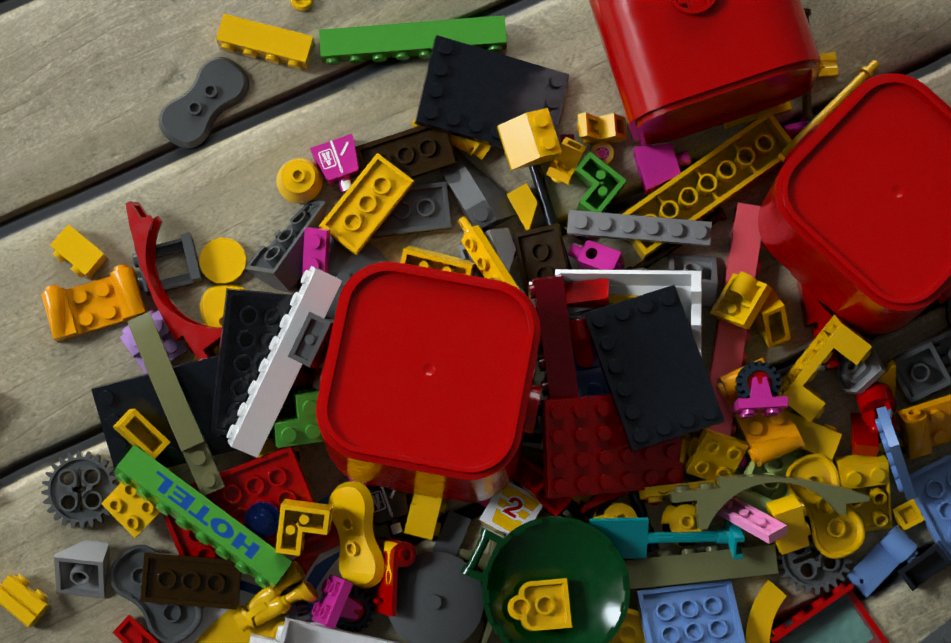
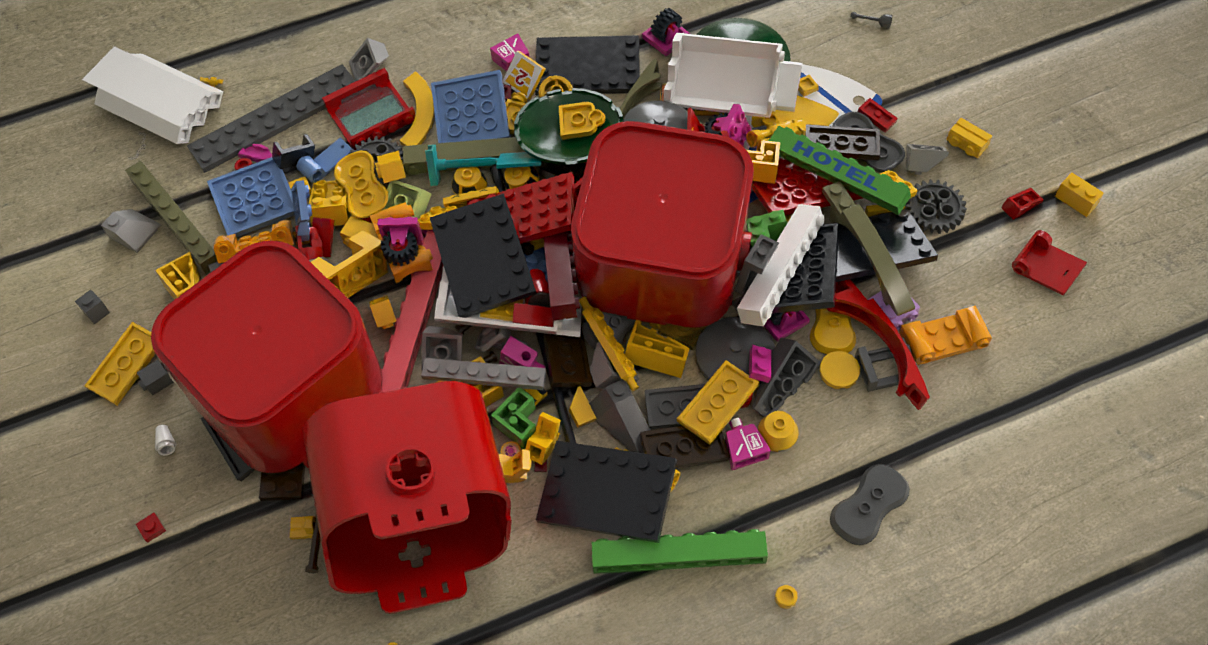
camera: 175 degrees left, 20 degrees down
(78, 251) = (964, 374): yellow brick -> none
(141, 433) = (892, 221): yellow brick -> none
(262, 518) = (791, 170): clear blue plate -> none
(265, 41) = (818, 552): yellow brick -> none
(529, 139) = (573, 445): yellow slope -> none
(711, 498) = (431, 187): olive slope -> none
(741, 300) = (405, 315): yellow plate -> none
(752, 520) = (422, 169): bright pink plate -> none
(865, 73) = (266, 517): yellow bar -> none

